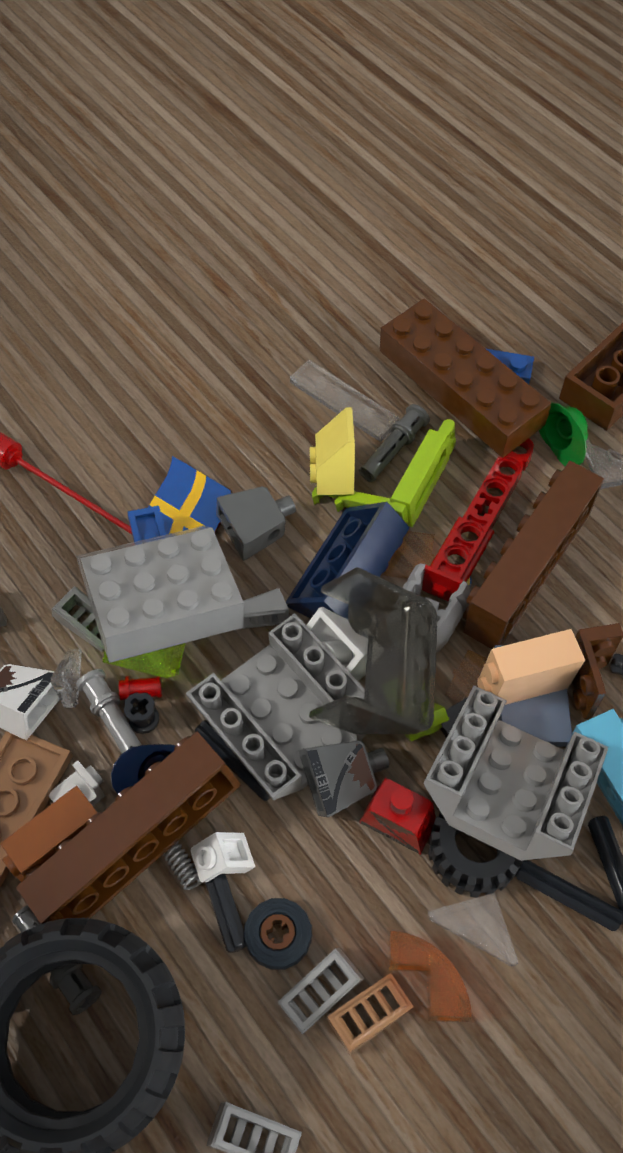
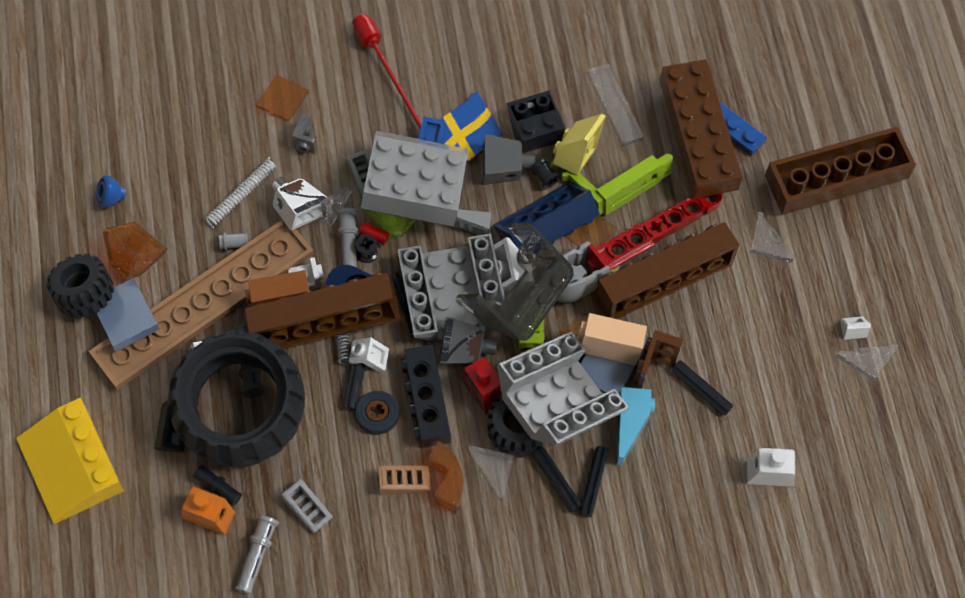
camera: 25 degrees right, 5 degrees up
(267, 456) = (536, 121): none -> black slope
(295, 1013) = (396, 459): light grey slope -> none
(304, 823) = (424, 359): none -> black brick
(313, 511) = (545, 173): none -> black bush
(401, 434) = (640, 147): dark grey pin -> none
(566, 433) = (749, 201): green piece -> none

